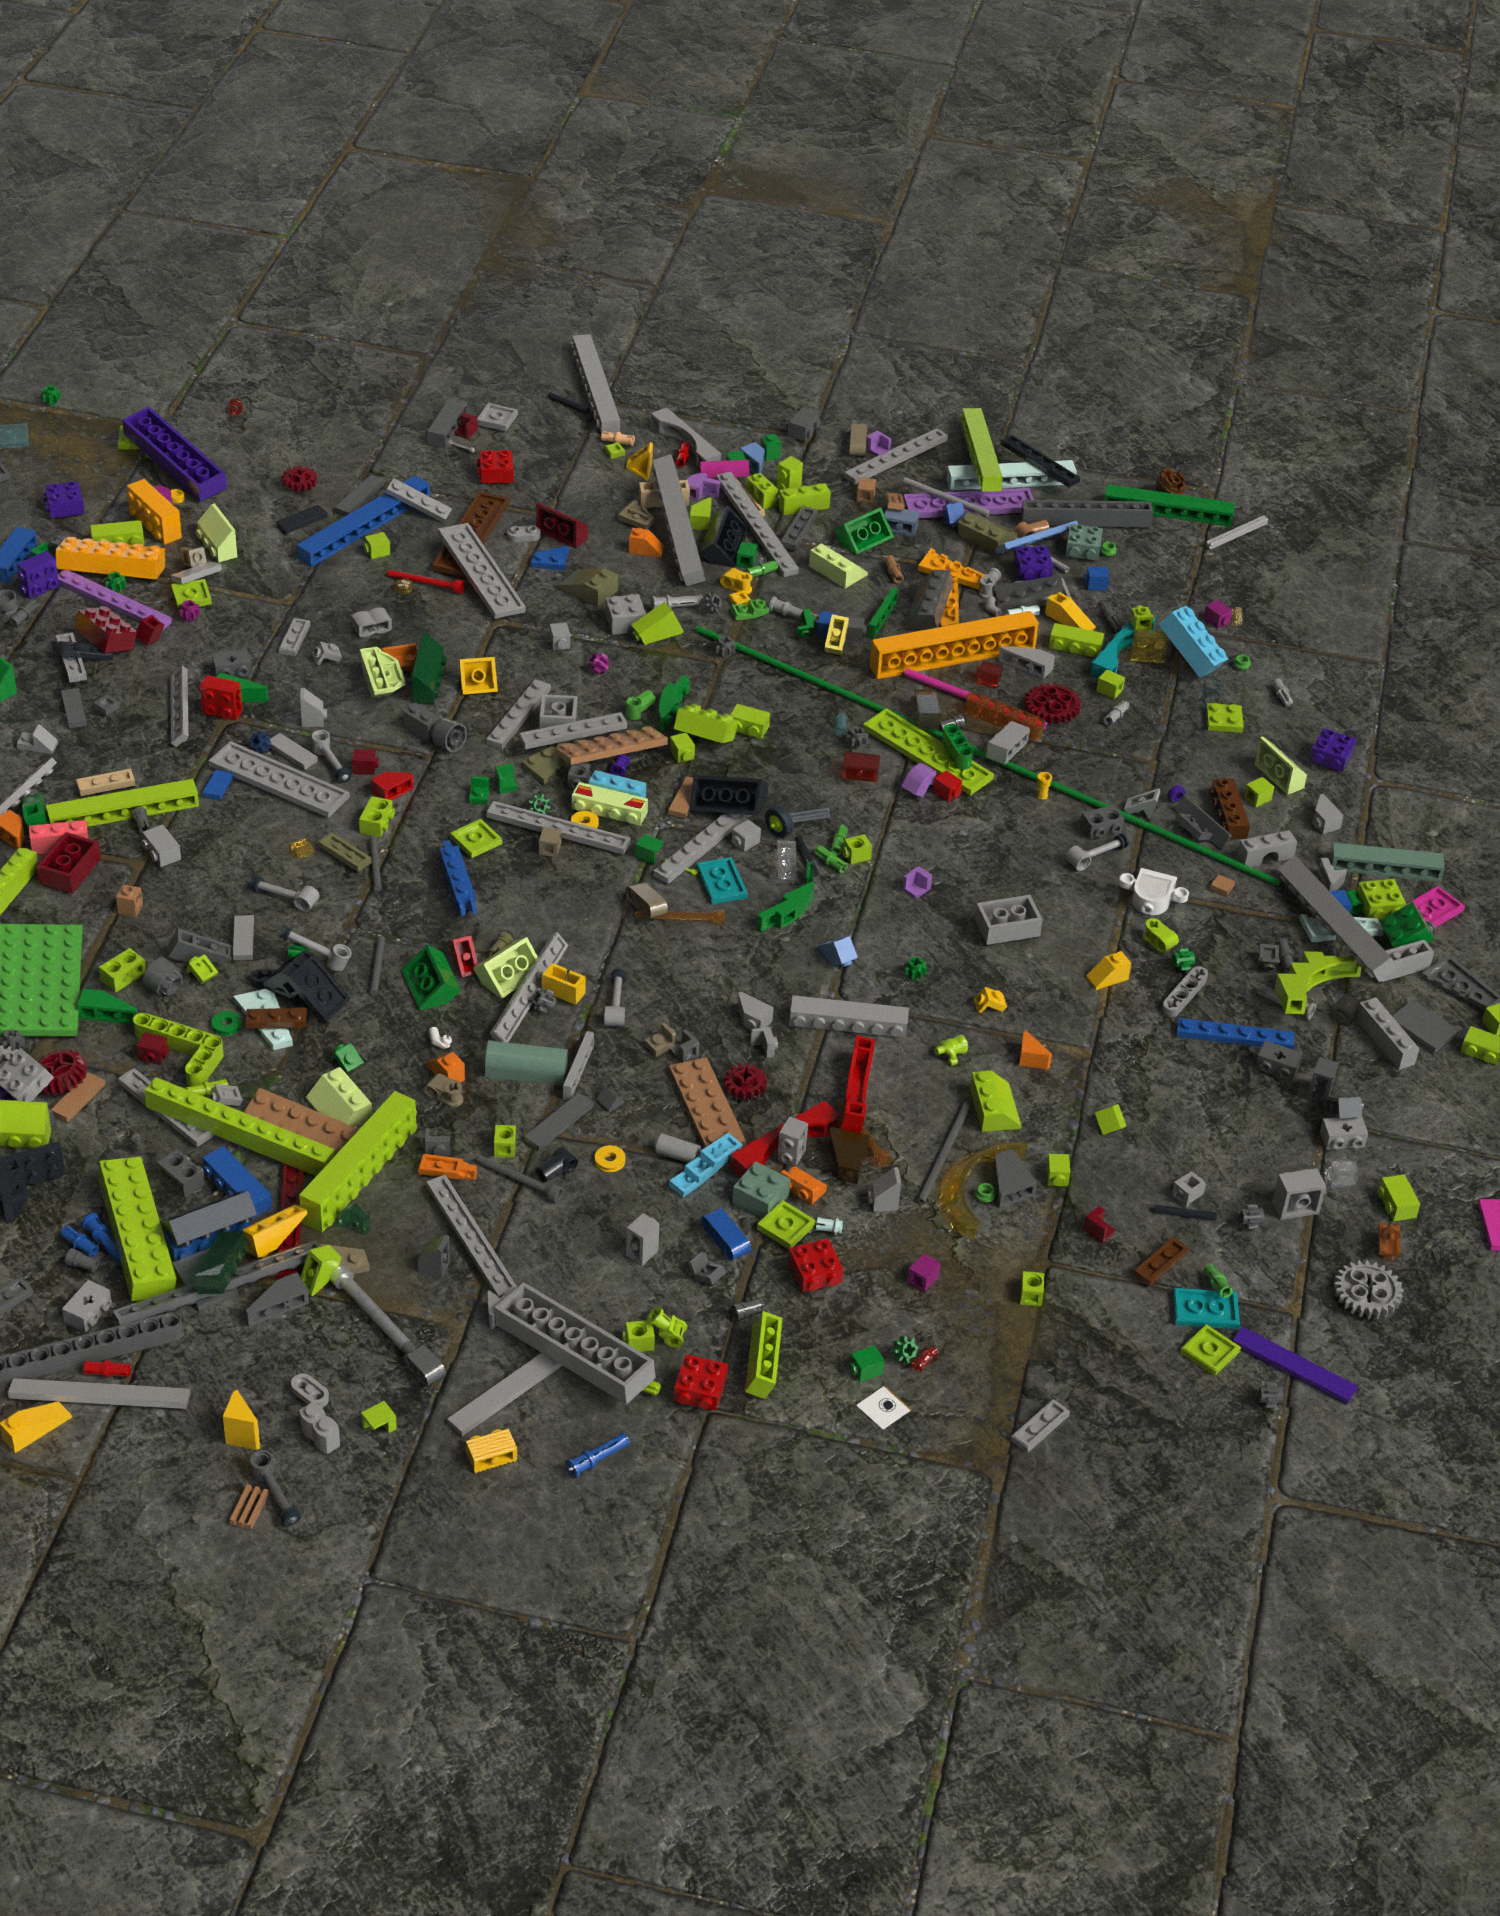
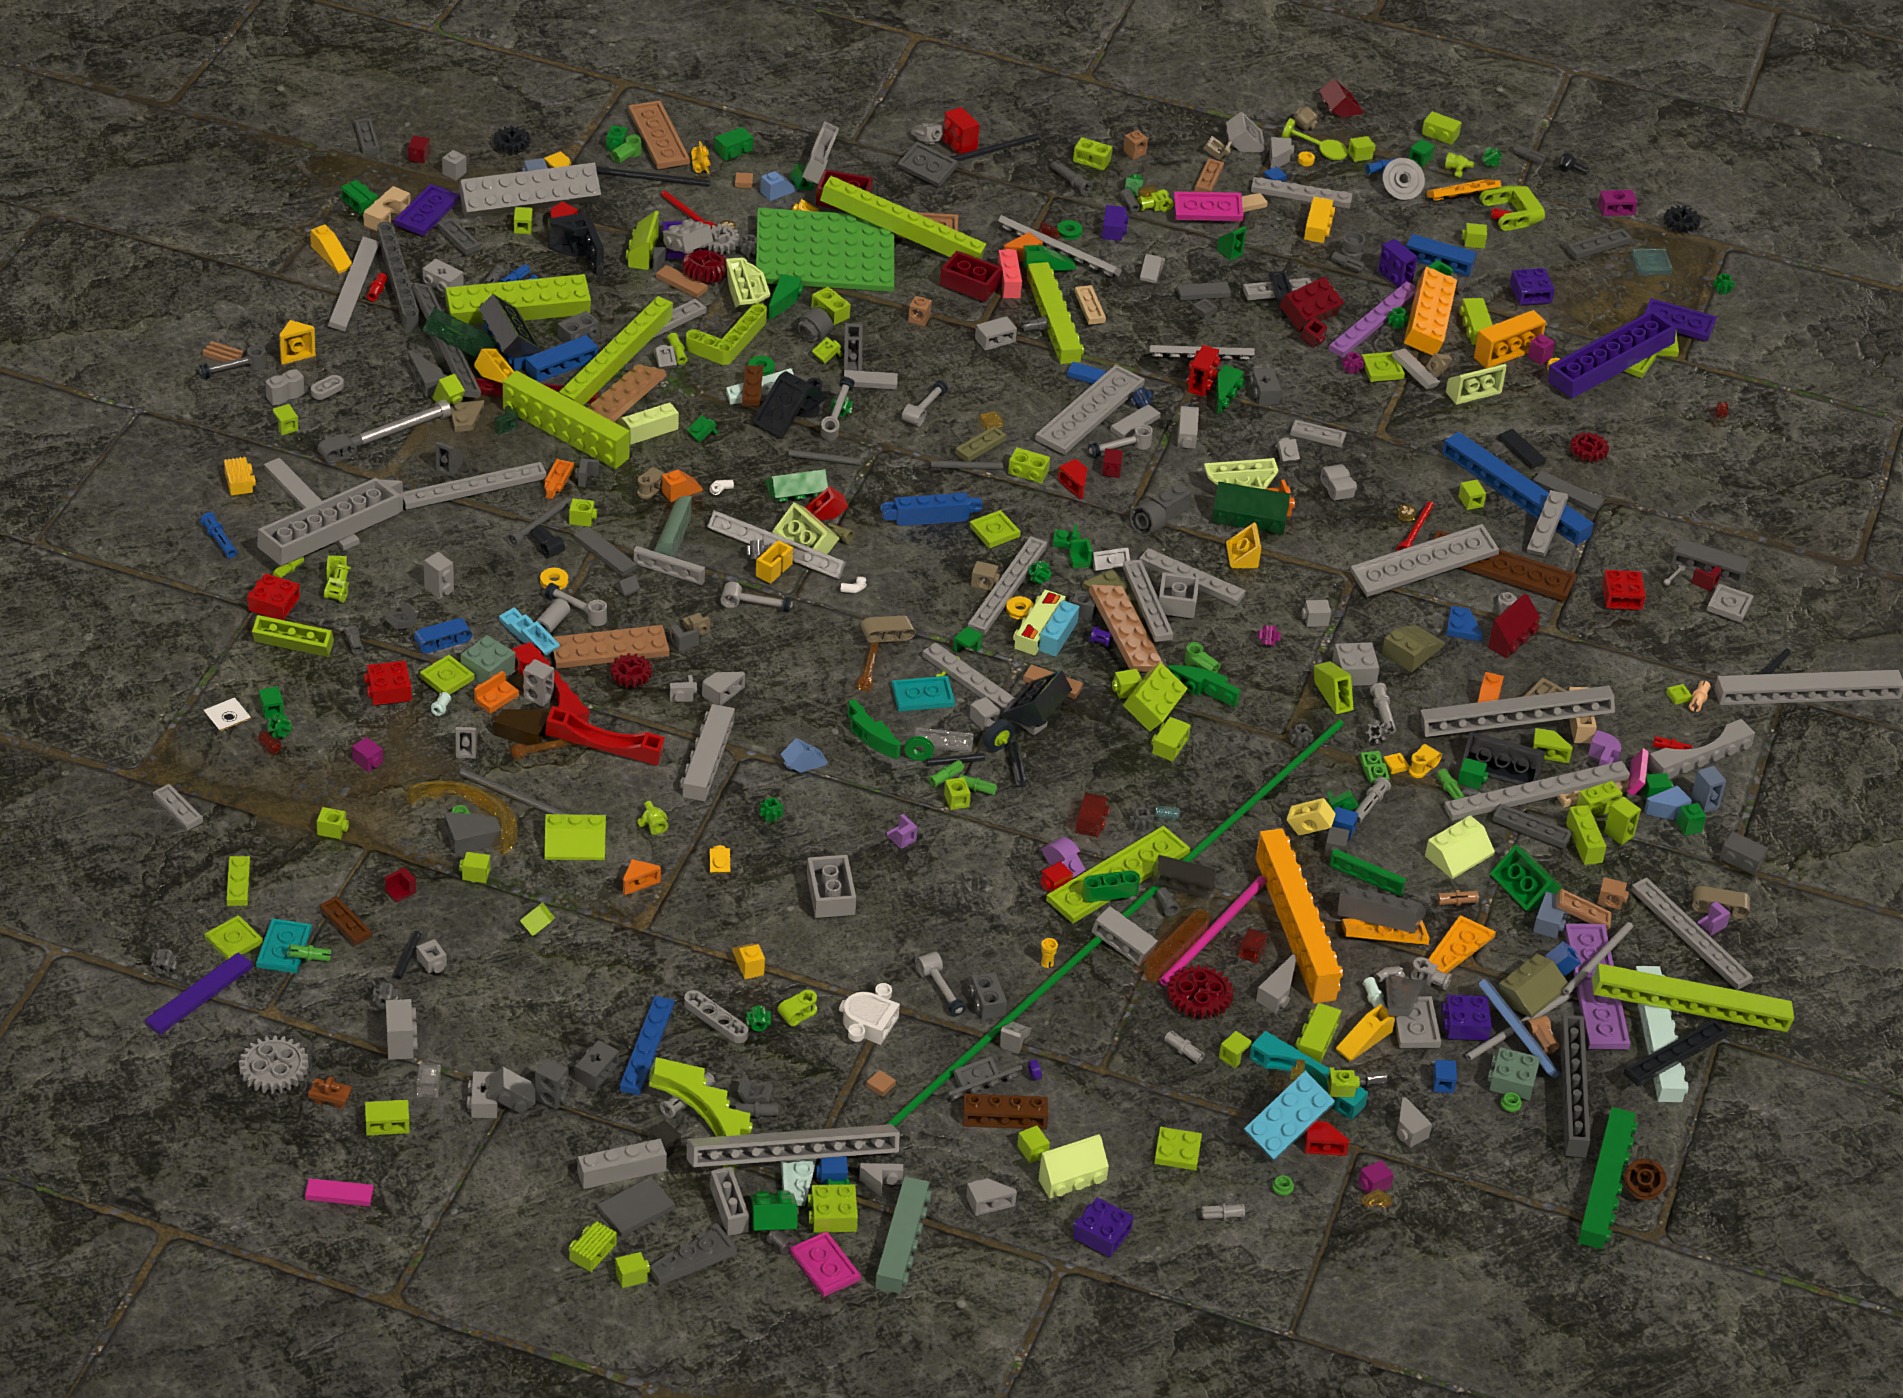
camera: 95 degrees right, 0 degrees up
(100, 1034) = (746, 283): none -> yellowish green wedge
(104, 423) = (1687, 321): none -> dark purple plate
(153, 1048) = (728, 318): dark red brick -> none
(503, 756) = (1110, 558): none -> light grey panel
(579, 931) = (856, 587): none -> white arm
(641, 461) = (1651, 712): yellow slope -> none
(663, 1118) = (595, 609): none -> light grey piece
(739, 432) = (1708, 789): none -> sand blue brick
(1130, 1357) = (238, 881): none -> lime plate
(1154, 596) = (1412, 1124): none -> light grey slope
(1236, 532) = (1559, 1240): light grey axle -> none
(1253, 849) = (930, 1120): light grey arch -> none

